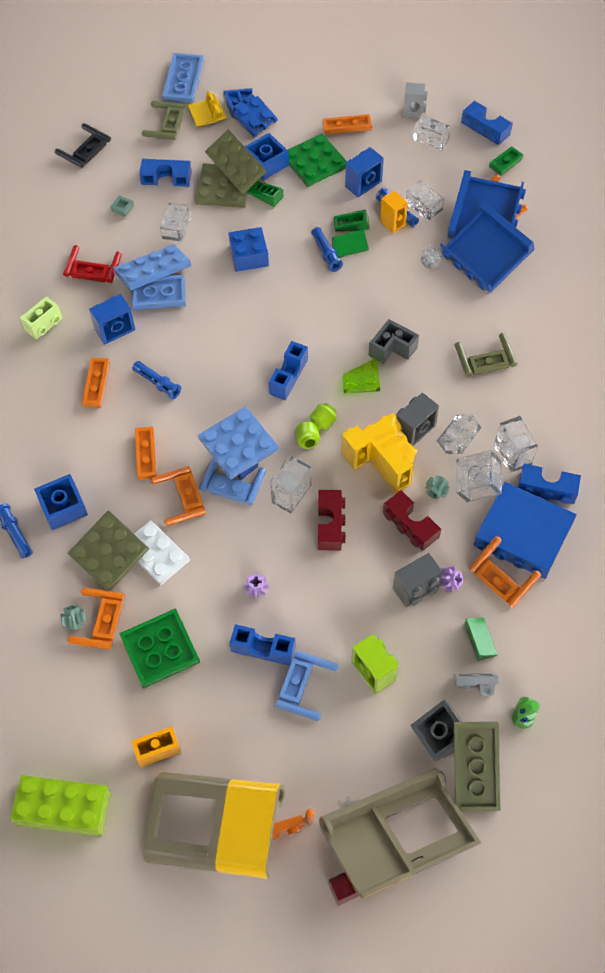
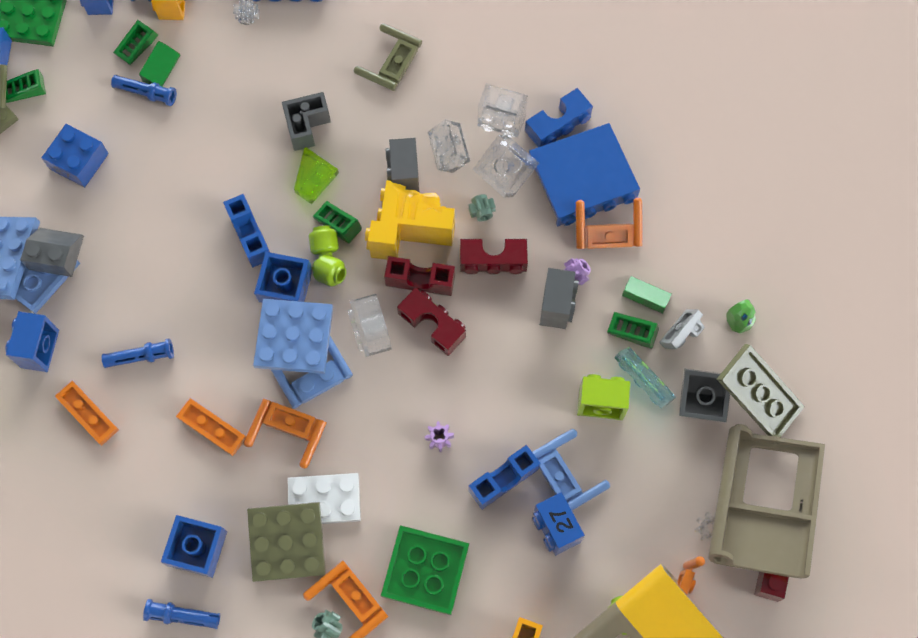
camera: 50 degrees left, 10 degrees up
(176, 284) = (52, 251): none -> dark grey slope
(259, 703) = (557, 524): none -> blue brick
(275, 413) = (283, 278): none -> blue brick
(345, 416) = (350, 227): none -> green slope
(359, 497) = (404, 275): none -> dark red arch
(417, 682) = (644, 377): none -> clear light blue plate
(449, 662) = (636, 322): none -> green slope

